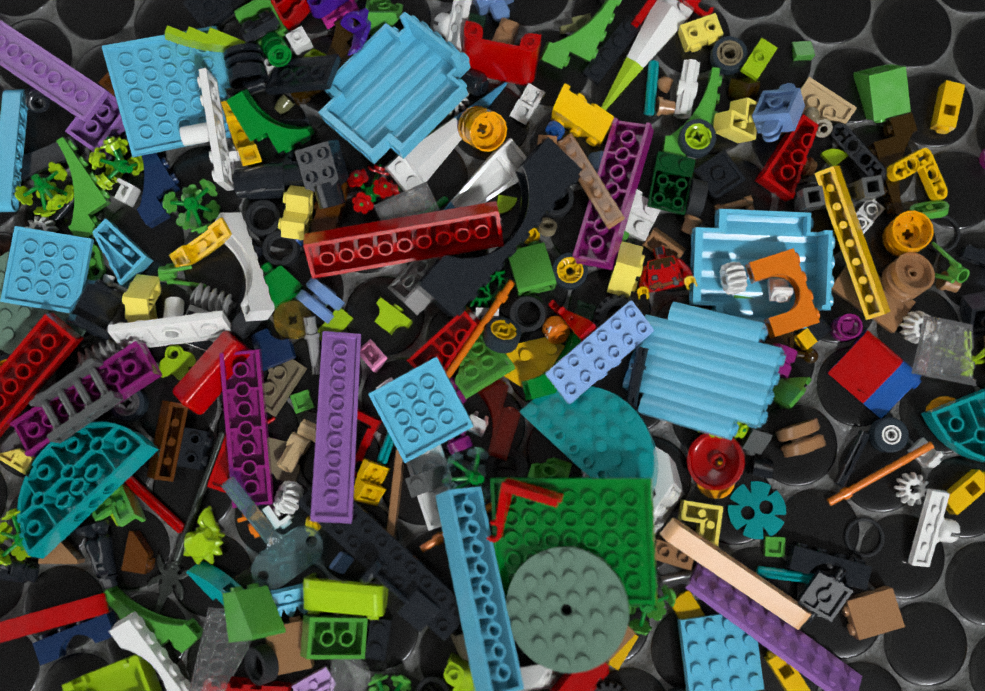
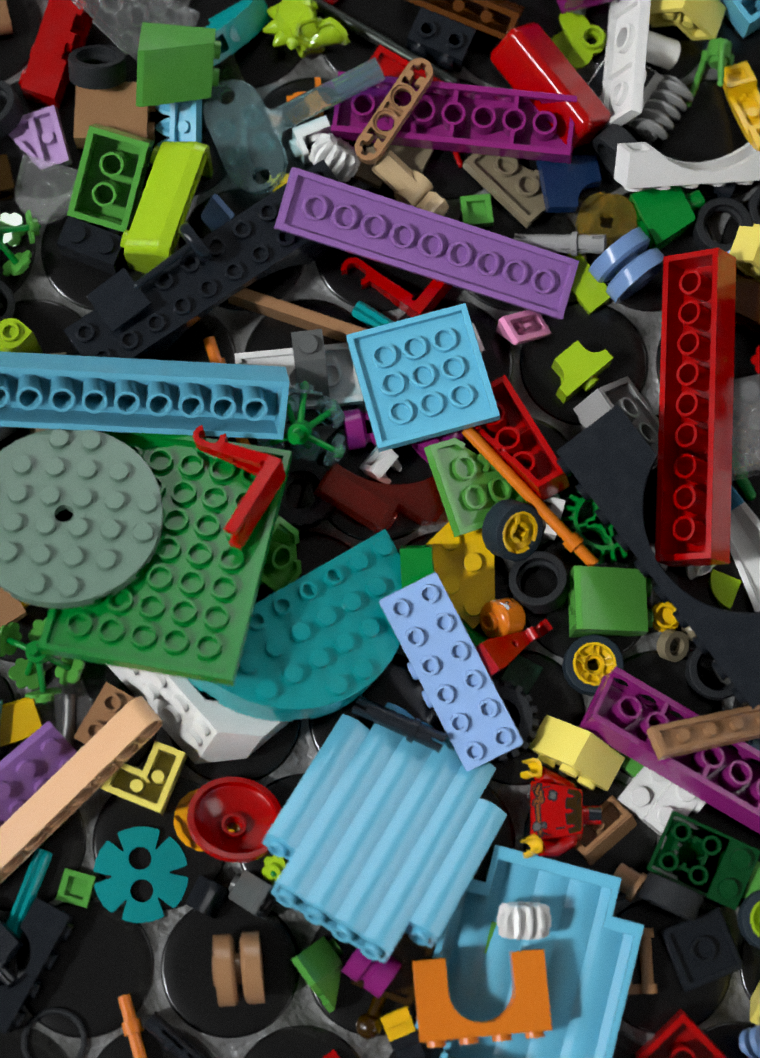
camera: 90 degrees right, 5 degrees down
(252, 467) = (396, 112): none -> medium nougat beam
(369, 481) = (328, 279): yellow slope -> none
(779, 290) = (488, 996): white bracket -> none

